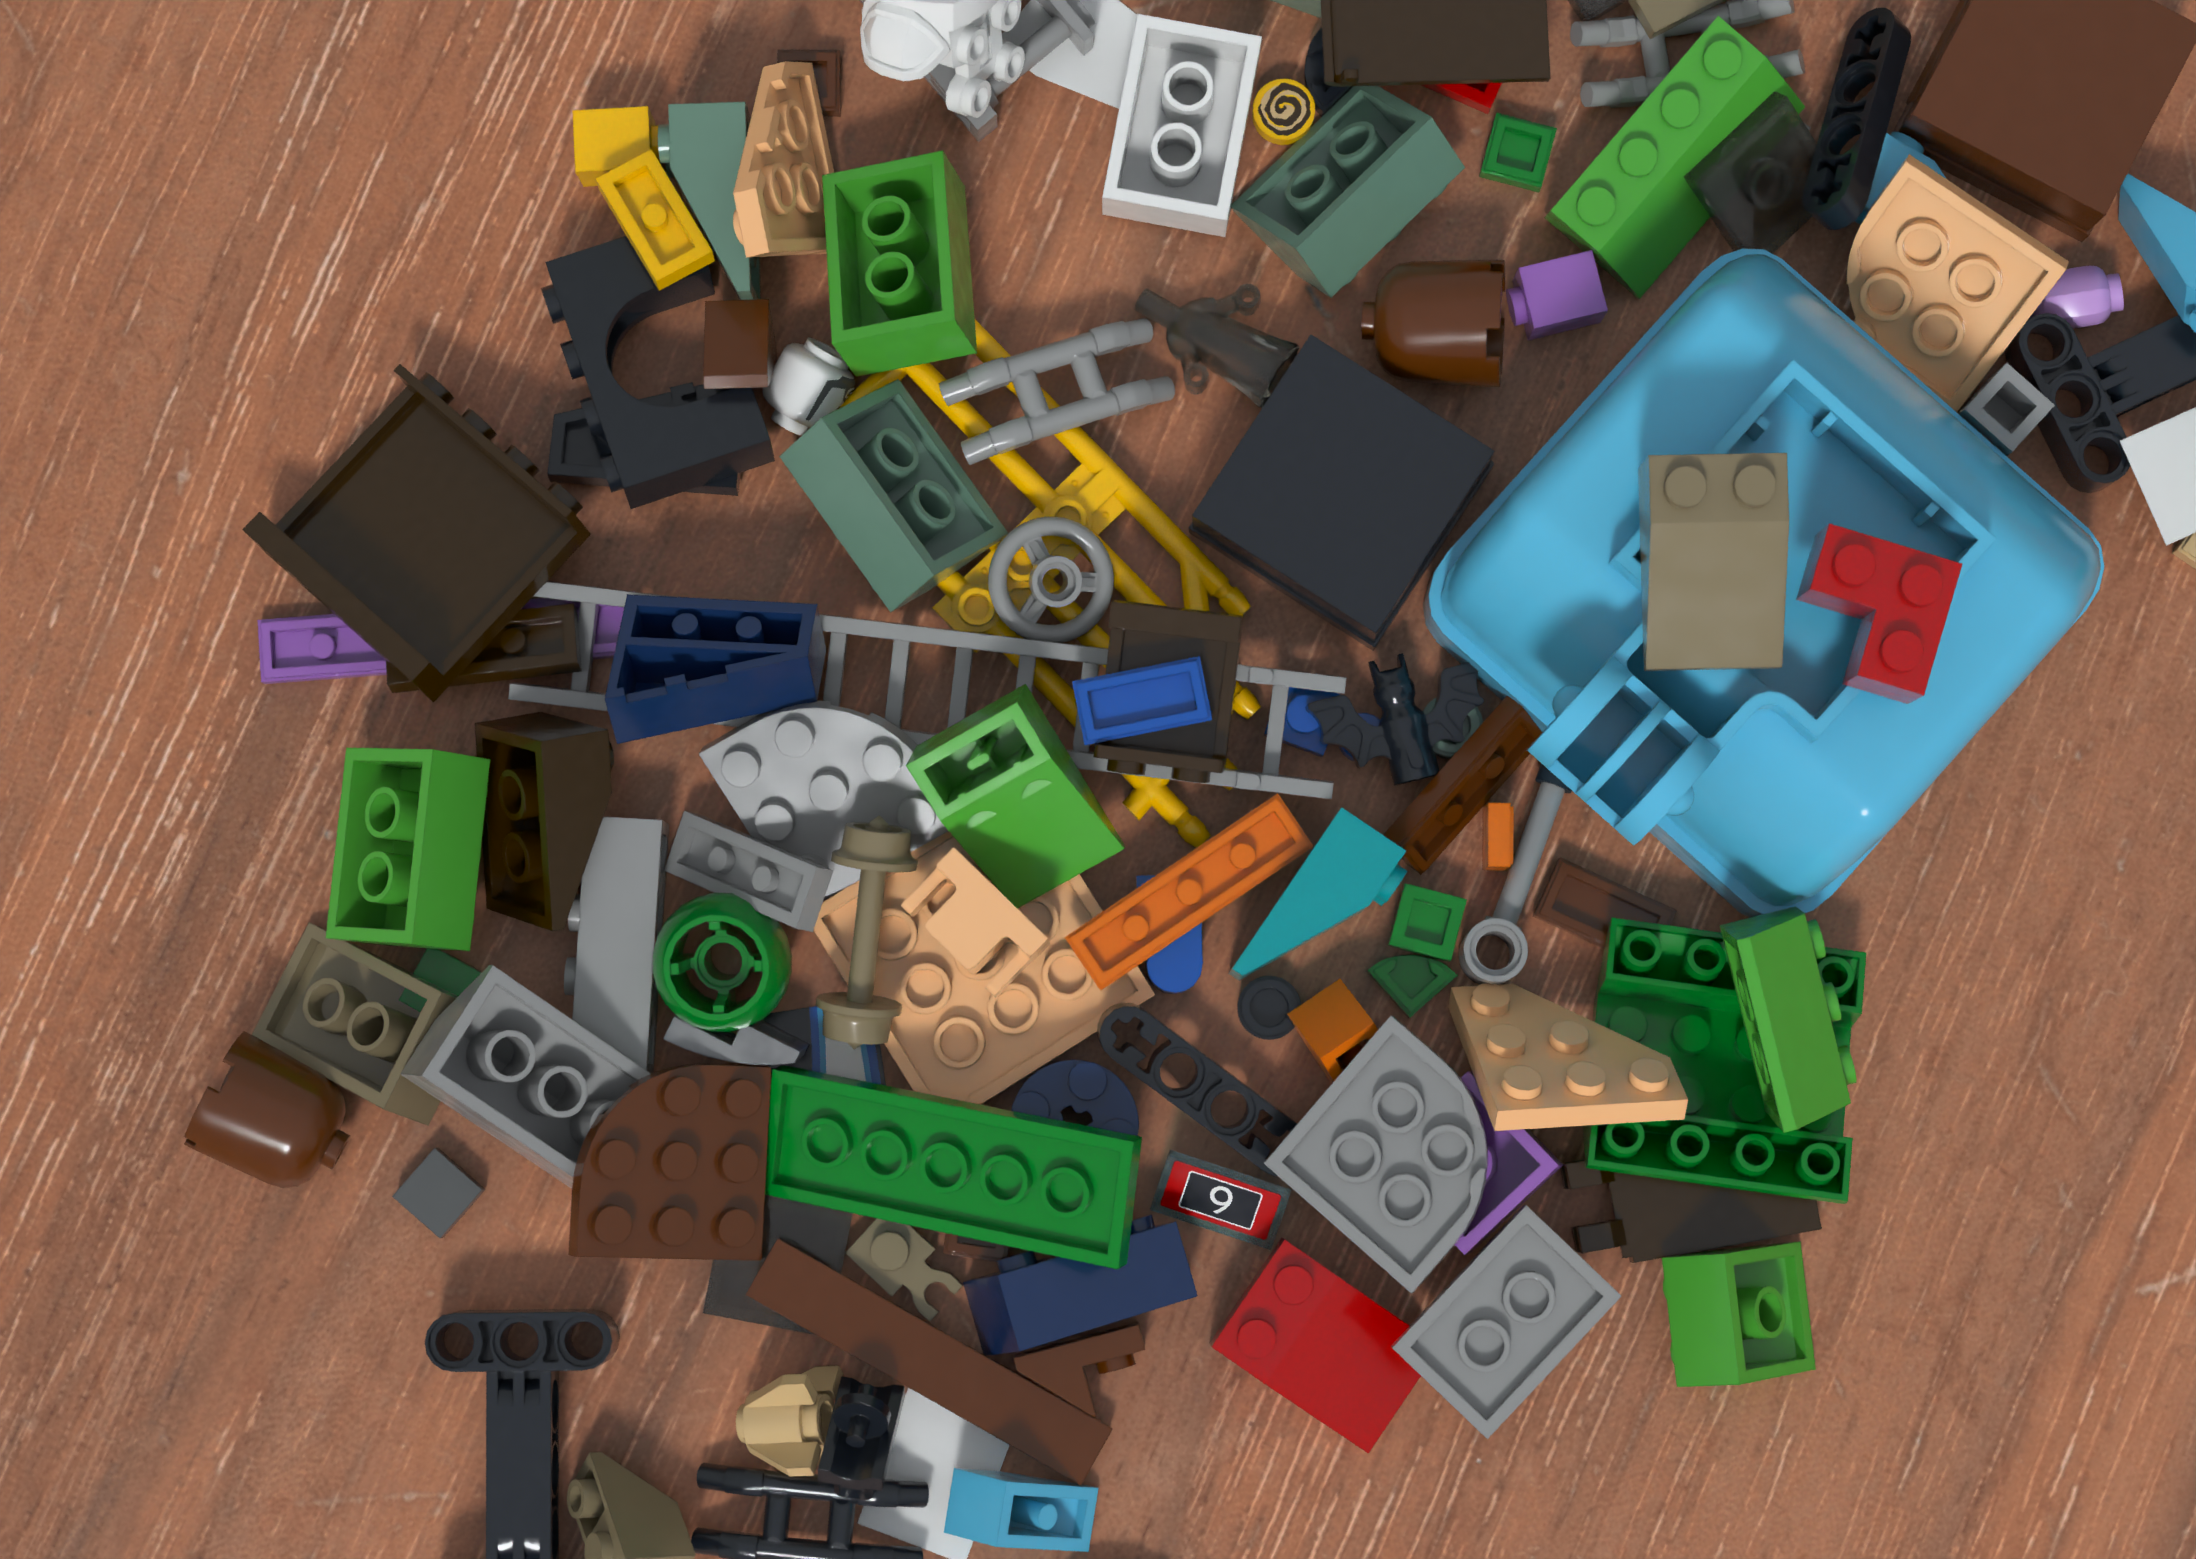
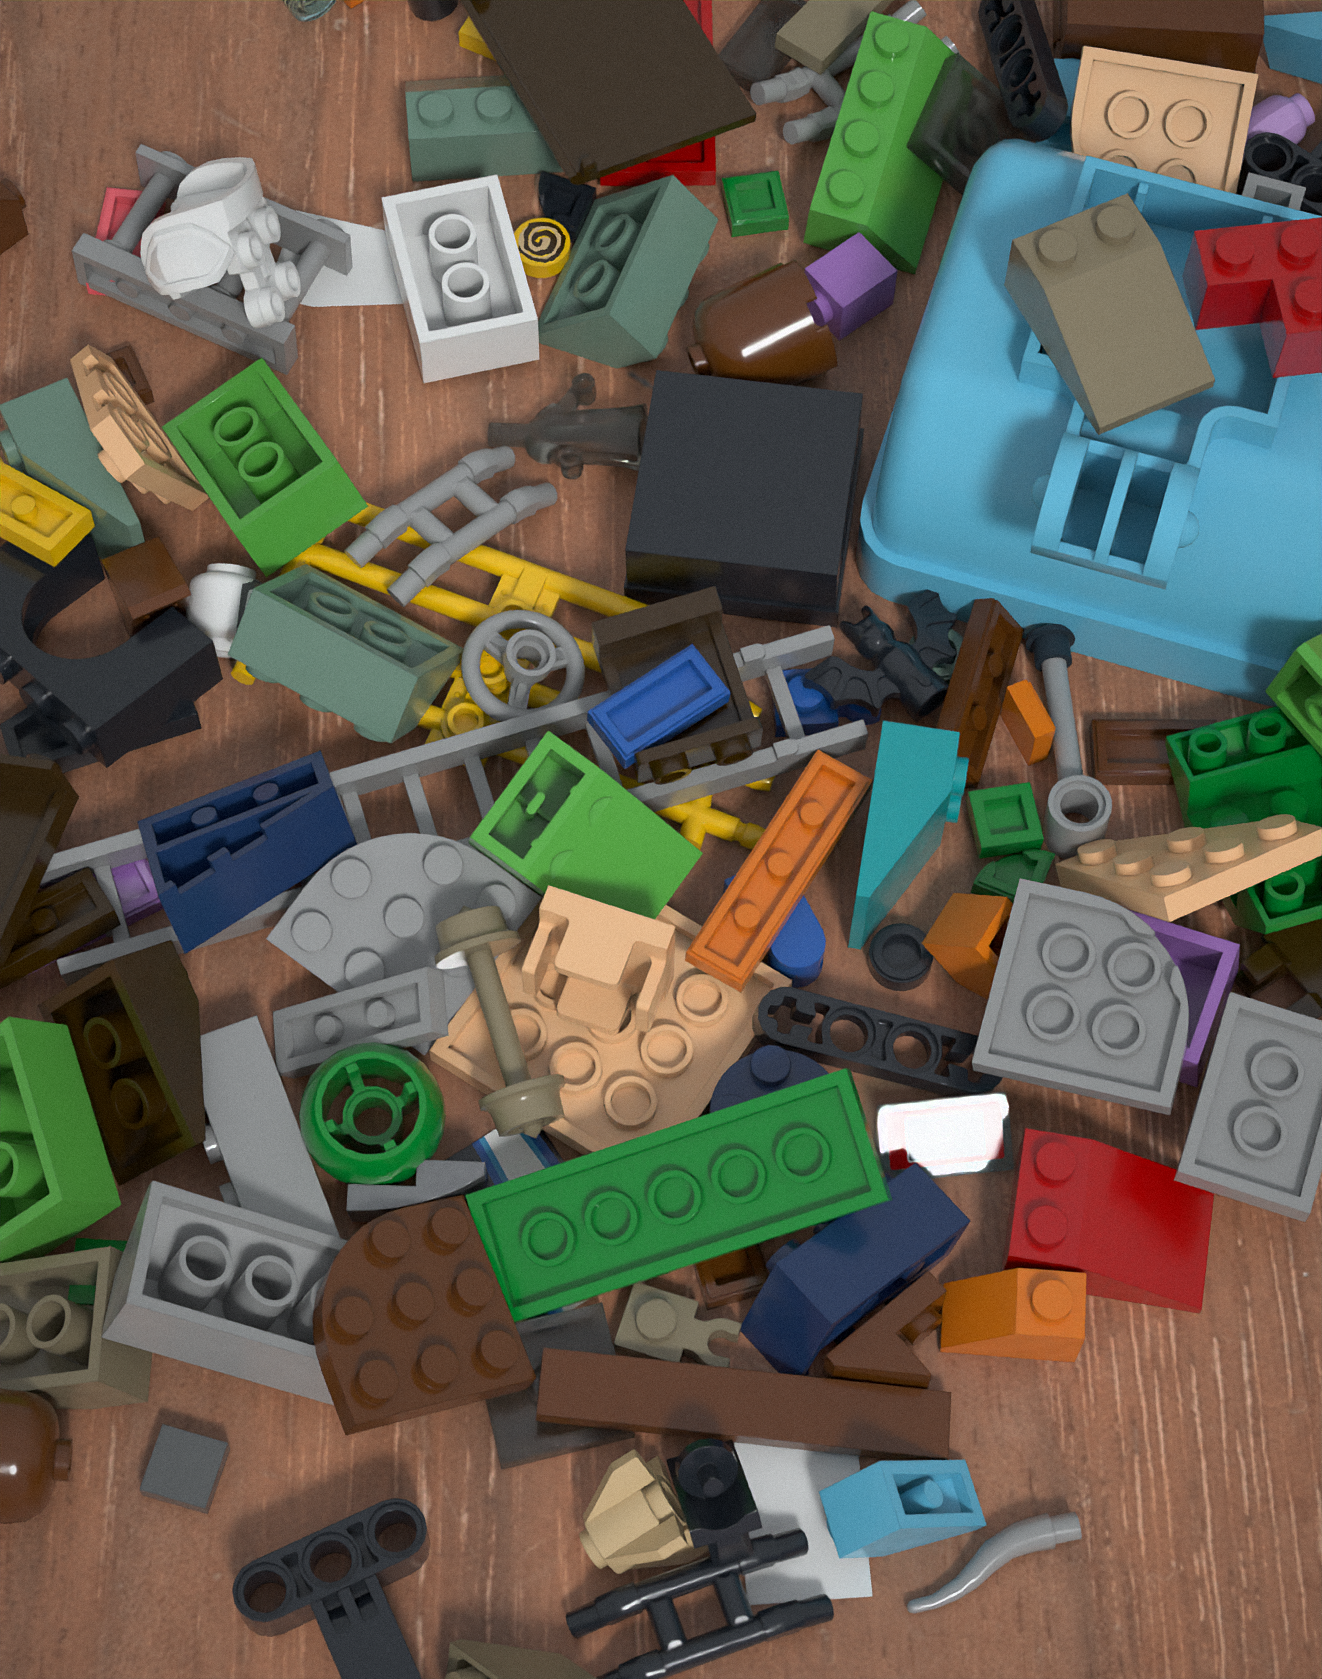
camera: 30 degrees left, 20 degrees down
(1198, 1388) = (1016, 1315): none -> orange slope

